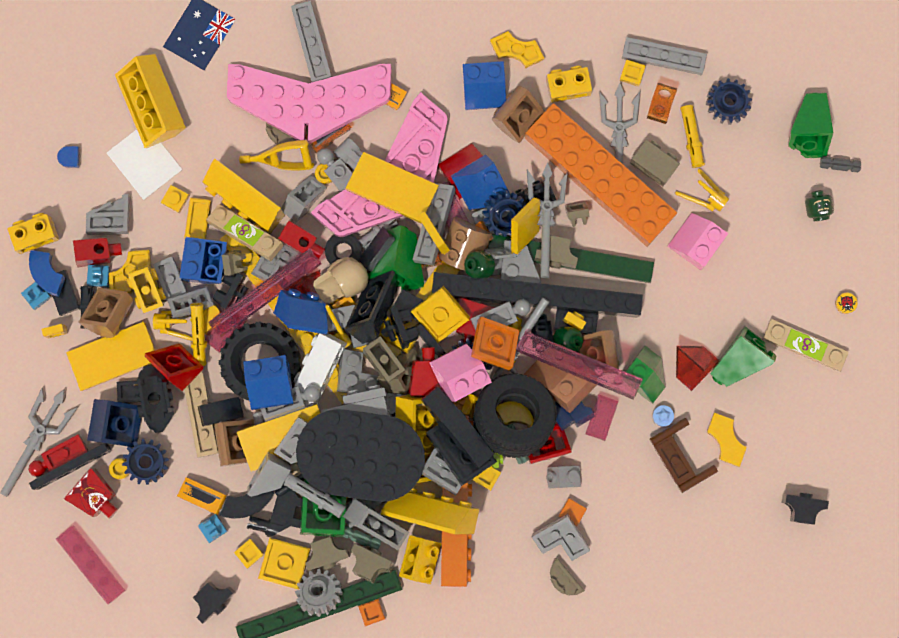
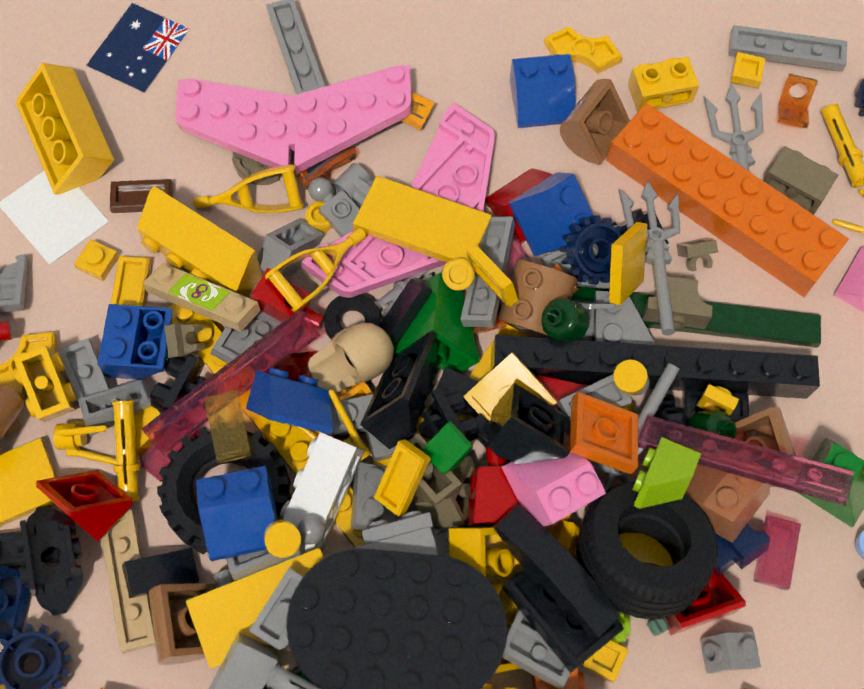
camera: 10 degrees left, 15 degrees down
(203, 152) = (132, 195): none -> reddish brown tile
(262, 325) = (227, 427): none -> clear yellow tile
(294, 400) = (282, 538): none -> yellow tile
(324, 215) = (320, 257): none -> yellow piece
(368, 364) = (402, 477): none -> yellow tile
(397, 348) = (448, 448): none -> green slope
(412, 228) = (458, 274): none -> yellow tile
(448, 339) = (528, 428): none -> black slope
(516, 306) = (630, 377): none -> yellow tile
(530, 372) = (667, 476): none -> lime slope

